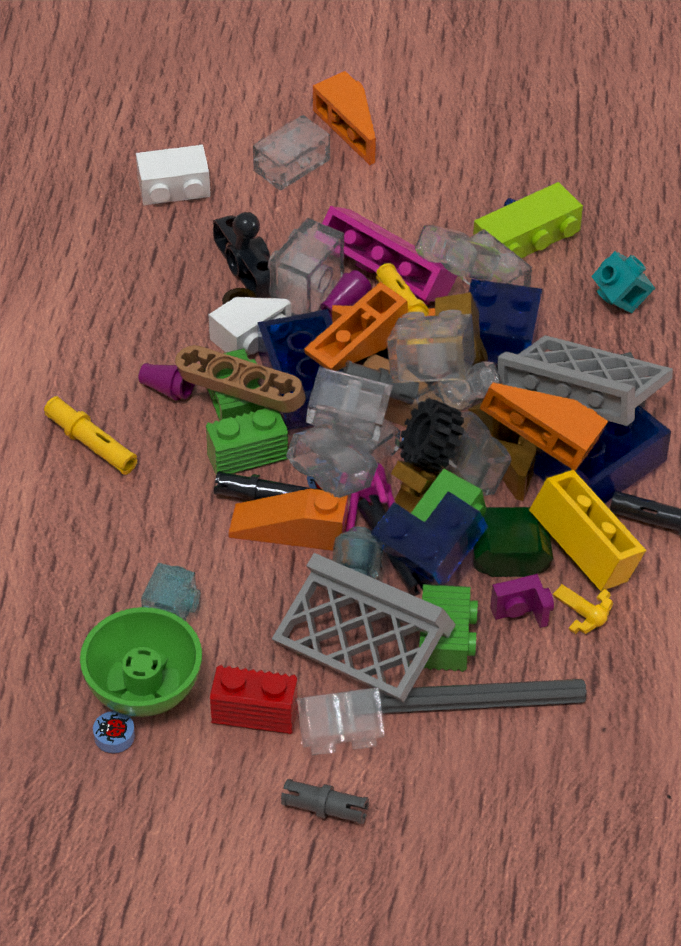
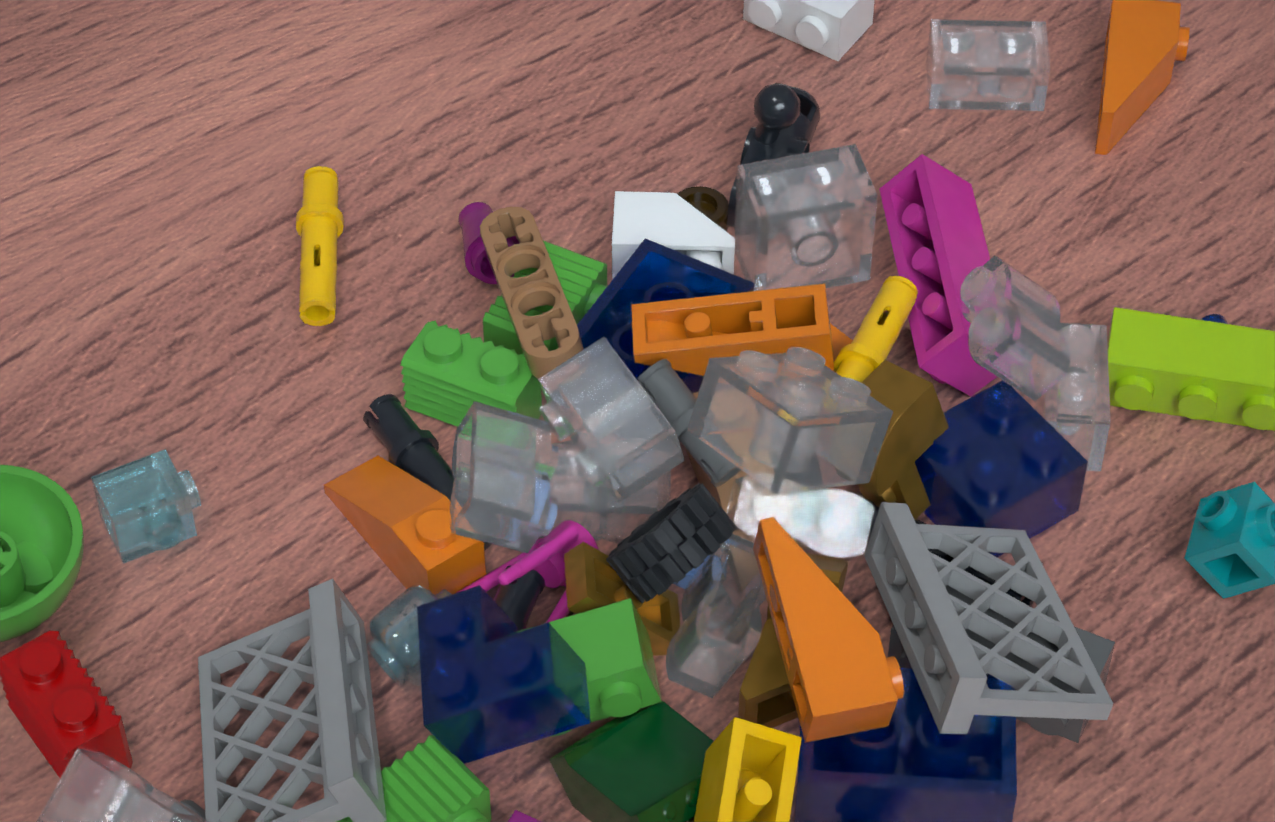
camera: 45 degrees right, 0 degrees up
(347, 291) = (848, 288): magenta cone -> none

